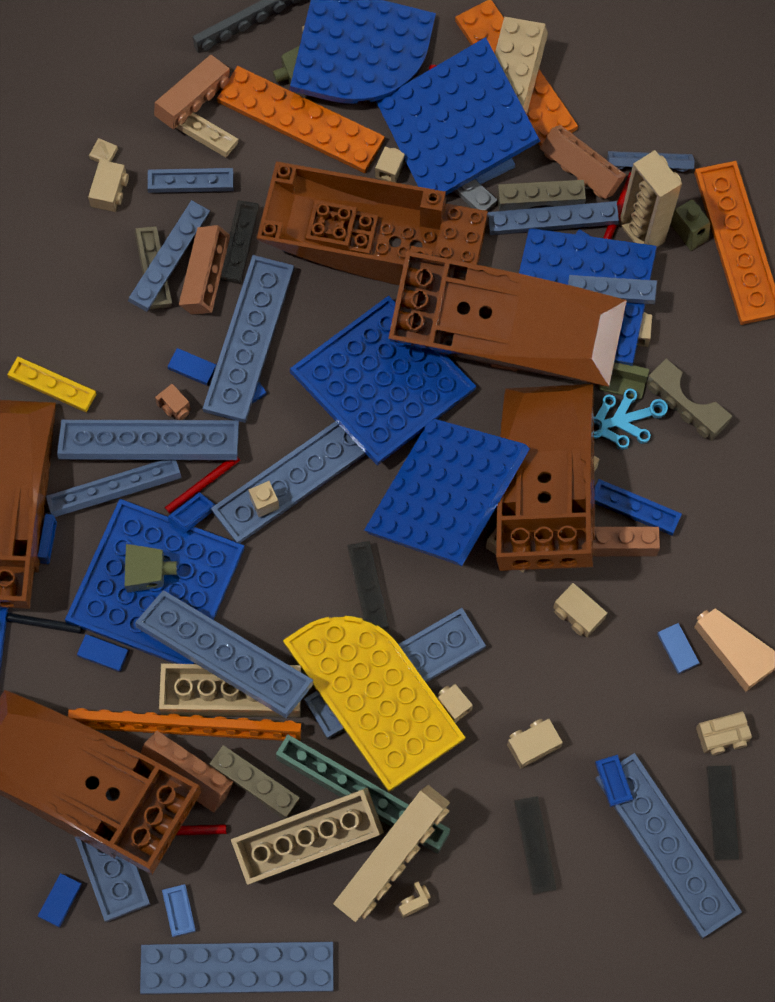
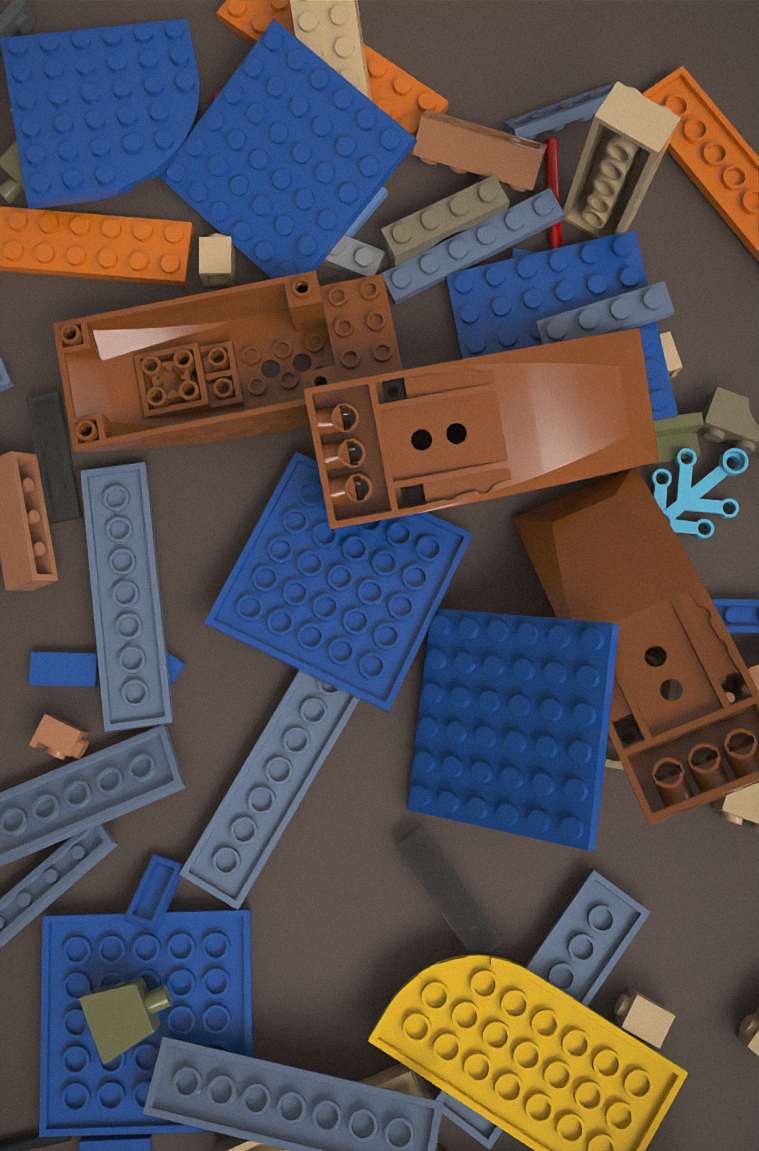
camera: 20 degrees left, 10 degrees up
(200, 485) = (148, 844): red bar -> none
(263, 499) = (249, 836): tan brick -> none
(689, 221) = (671, 182): olive torso -> none

